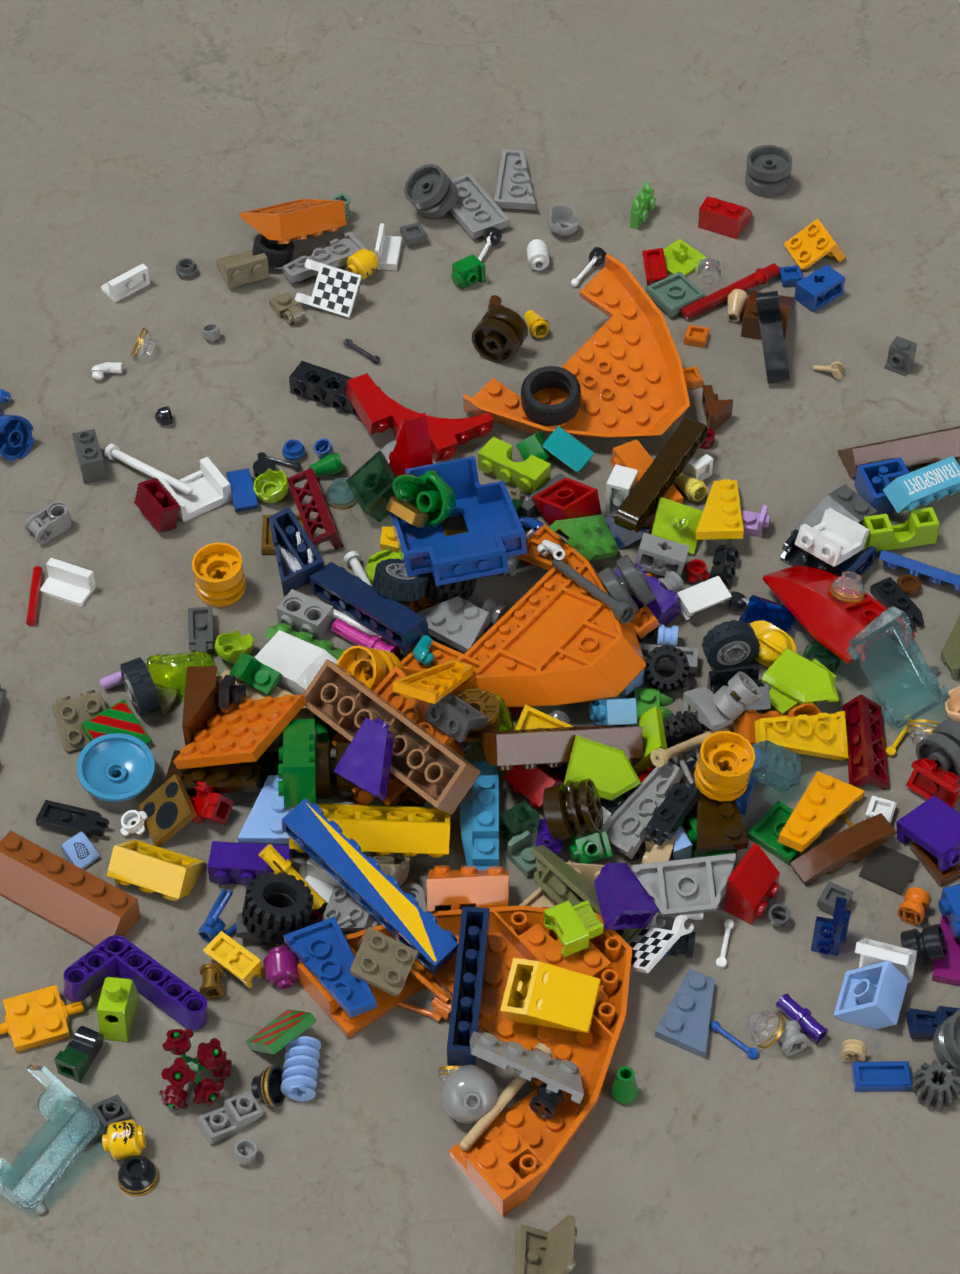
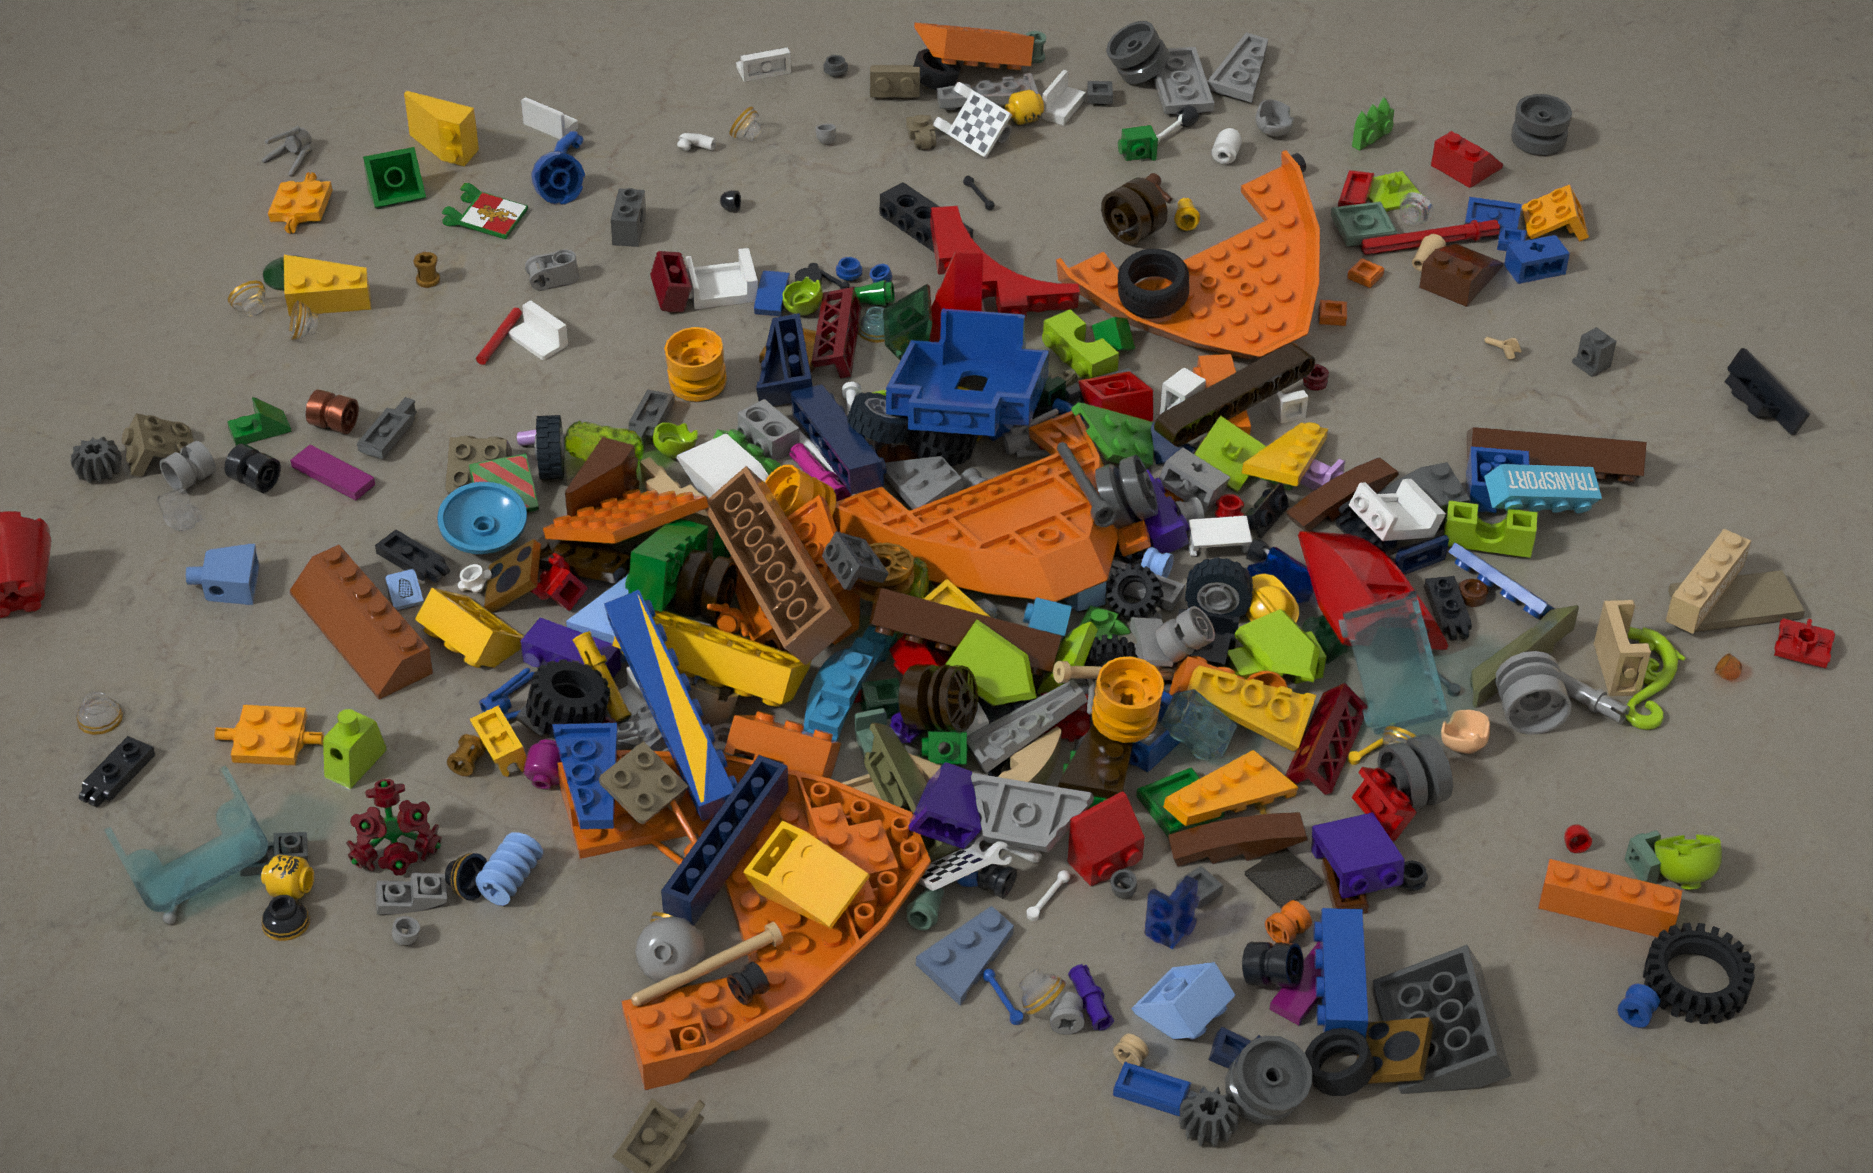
camera: 20 degrees right, 5 degrees down
(79, 1053) = (291, 781): leg -> none
(113, 452) = (657, 221): white bar -> none
(151, 979) = (405, 735): dark purple beam -> none
(230, 692) = (637, 477): black tile -> none
(256, 674) = (676, 468): green slope -> none
(281, 1031) = (506, 824): green tile -> none
(369, 758) = (737, 575): dark purple slope -> none
(407, 512) = (921, 351): pearl gold beam -> none
(421, 650) = (864, 495): teal arm -> none
(428, 494) = (952, 342): green head -> none
(433, 682) = (845, 520): light orange wing -> none
(529, 1064) = (740, 933): light grey wing -> none
(551, 547) = (1062, 432): white arm -> none
(568, 449) = (1149, 345): teal slope -> none
(573, 925) = (871, 813): lime piece -> none
(625, 1086) = (848, 1000): green cone -> none
(641, 989) = (925, 908): none -> sand green cone
(671, 813) = (1050, 737): black hinge -> none
(682, 845) = (1050, 773): light blue slope -> none
(693, 488) = (1271, 422): light yellow cone -> none
(715, 410) = (1344, 352): reddish brown slope -> none
(765, 256) = (1485, 209): none -> blue panel
(772, 337) = (1446, 288): black beam -> none
(775, 533) = (1332, 495): none -> reddish brown slope
(848, 588) = (1383, 564): clear piece -> none
(876, 952) = (1233, 966): white panel -> none
(879, 805) = (1311, 812): white tile -> none

